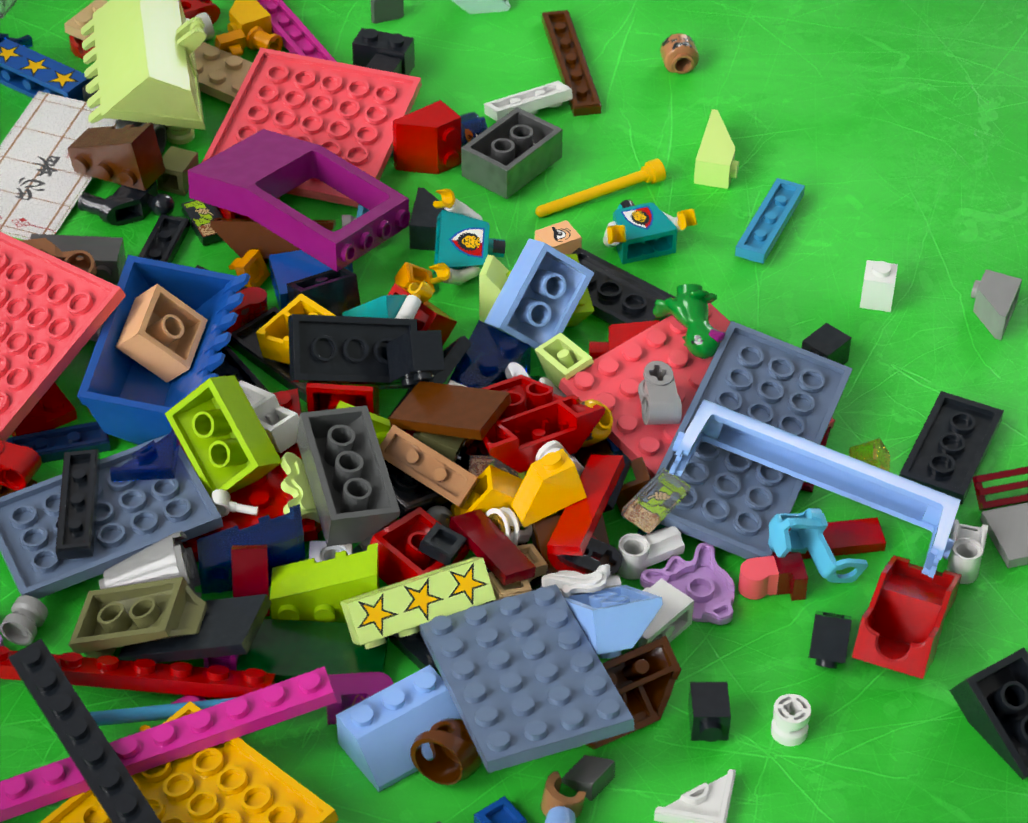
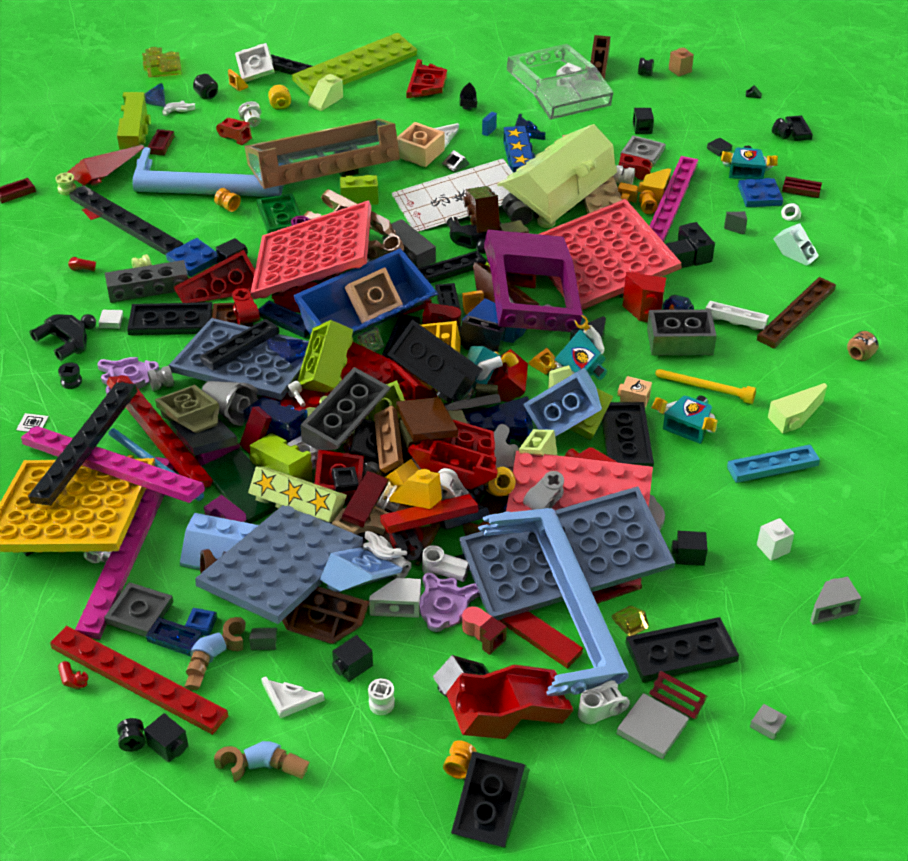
camera: 50 degrees right, 0 degrees up
(277, 421) = (365, 358): white slope -> none
(655, 500) = (466, 541): clear tile -> none
(692, 312) = (620, 466): green animal -> none
(807, 535) = (523, 613): medium azure piece -> none
(941, 707) = (459, 759): none -> light orange wheel

